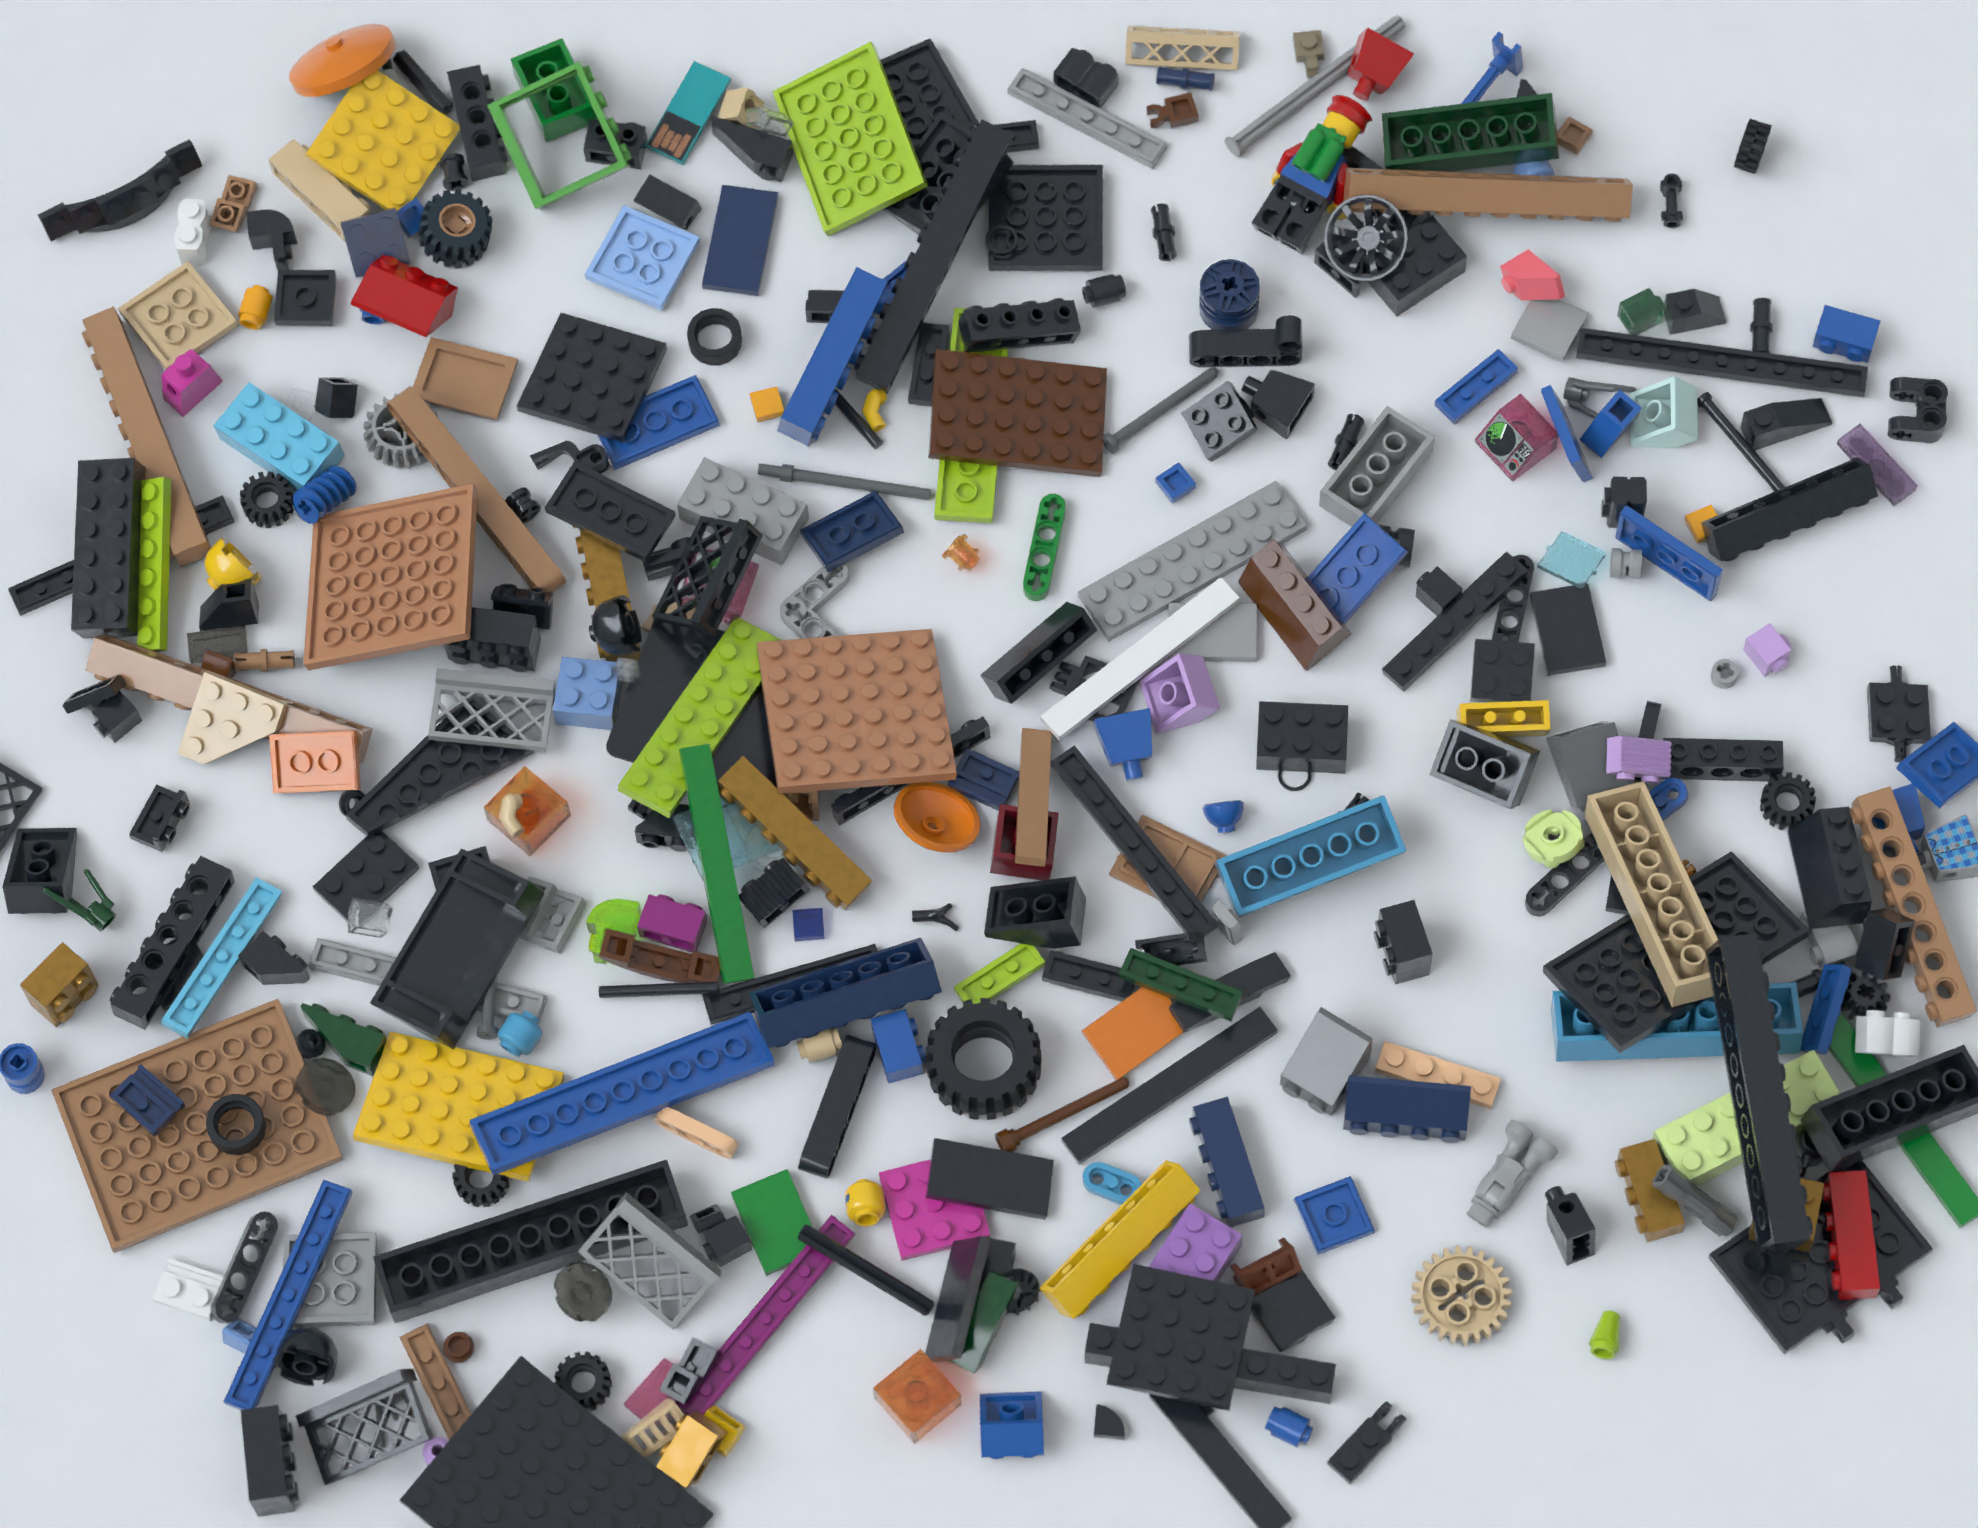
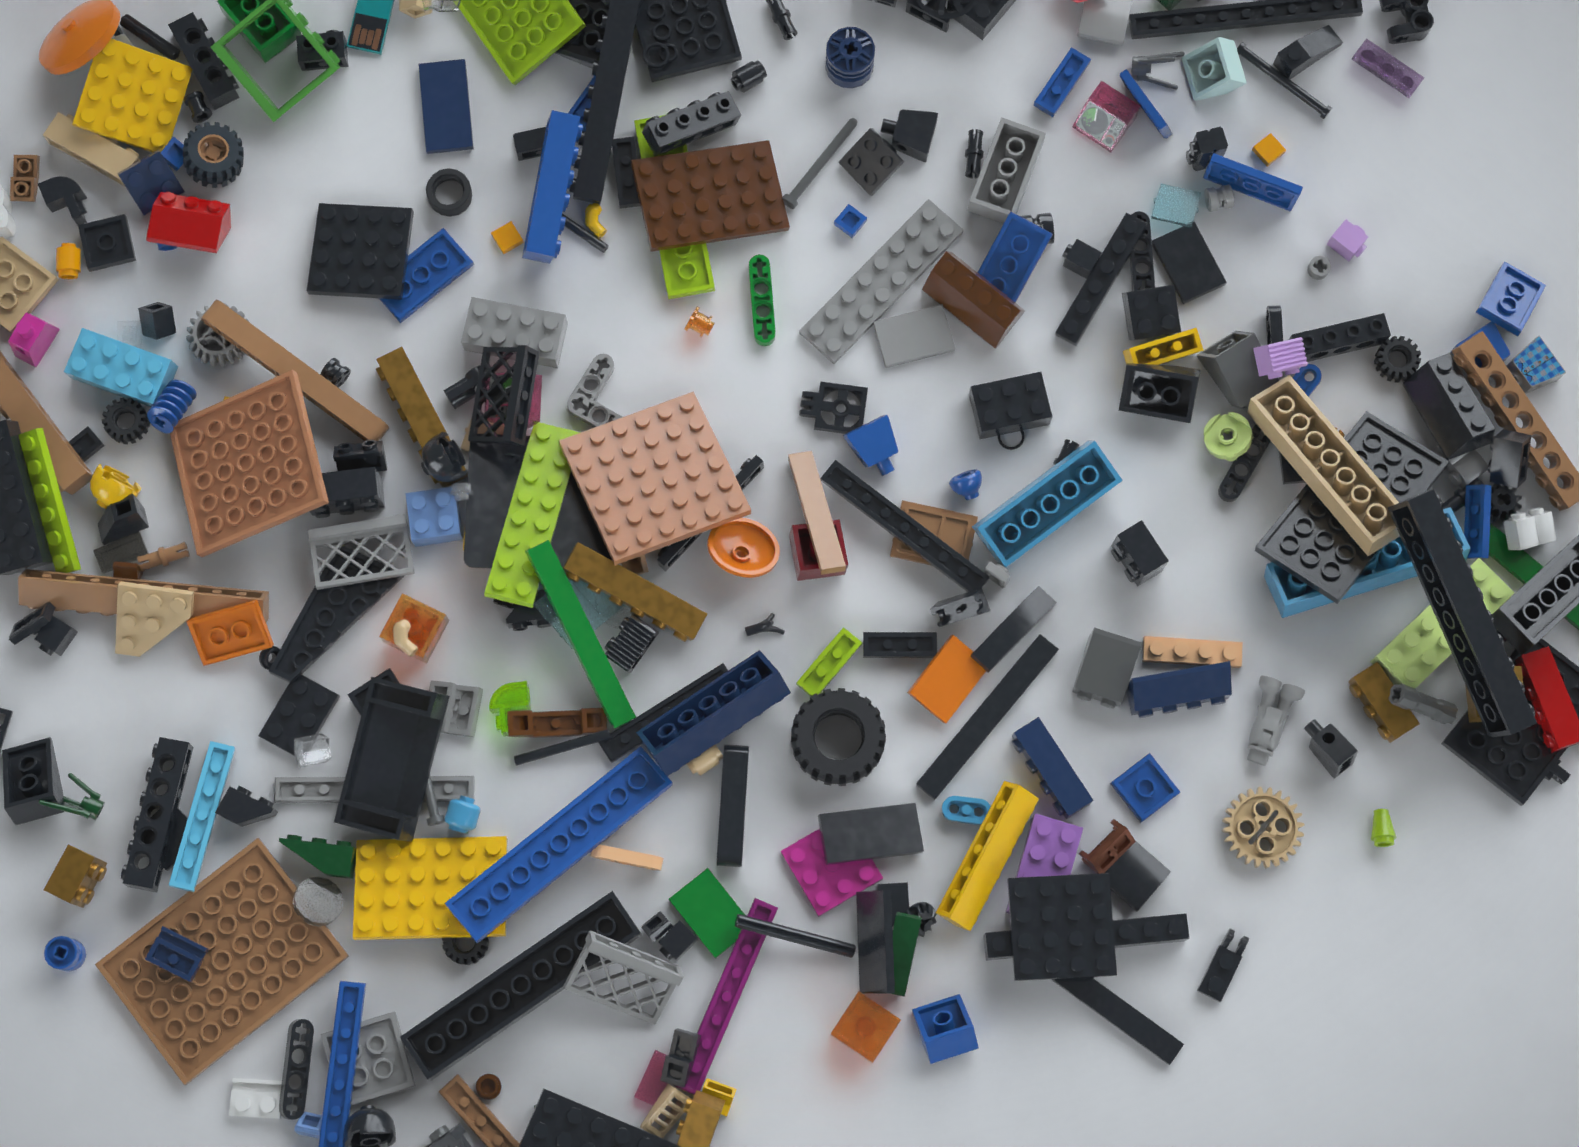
camera: 20 degrees left, 10 degrees up
(160, 817) = (117, 711): black bracket -> none
(232, 1102) = (239, 943): black tyre -> none
(304, 1046) = (291, 872): black plate -> none
(464, 378) = (256, 278): medium nougat piece -> none
(583, 1292) = (576, 1016): clear smoke tile -> none
(586, 456) = (376, 324): black piece -> none
(596, 1368) = (590, 1073): black tyre -> none
(610, 511) = (409, 362): black plate -> none
(642, 258) = (371, 141): light blue plate -> none
(668, 202) = (379, 89): black hinge -> none
(672, 922) = (557, 689): magenta brick -> none
(759, 151) = (440, 28): black slope -> none
(788, 473) = (541, 290): dark grey bar -> none
(808, 924) = (665, 660): clear blue tile -> none
(851, 531) = (606, 326): dark blue tile -> none
(865, 1202) = (777, 879): yellow head -> none
(897, 1045) = (766, 743): blue brick -> none
(984, 779) = (771, 504): dark blue plate -> none
(1010, 1139) = (877, 794): reddish brown piece -> none
(1037, 913) = (845, 605): black slope -> none
(1038, 652) = (784, 389): black brick -> none
(1108, 1424) = (1019, 1006): black tile -> none
(1139, 659) = (864, 374): white tile -> none
(1179, 693) = (903, 393): lavender slope -> none
(1180, 984) = (977, 636): dark green plate -> none
(1248, 346) = (876, 94): black beam -> none
(1289, 1426) = (1161, 970): blue brick -> none
(1610, 423) = (1177, 87): blue slope -> none
(1789, 509) = (1333, 122): black brick -> none
(1898, 713) = (1460, 265): black plate -> none

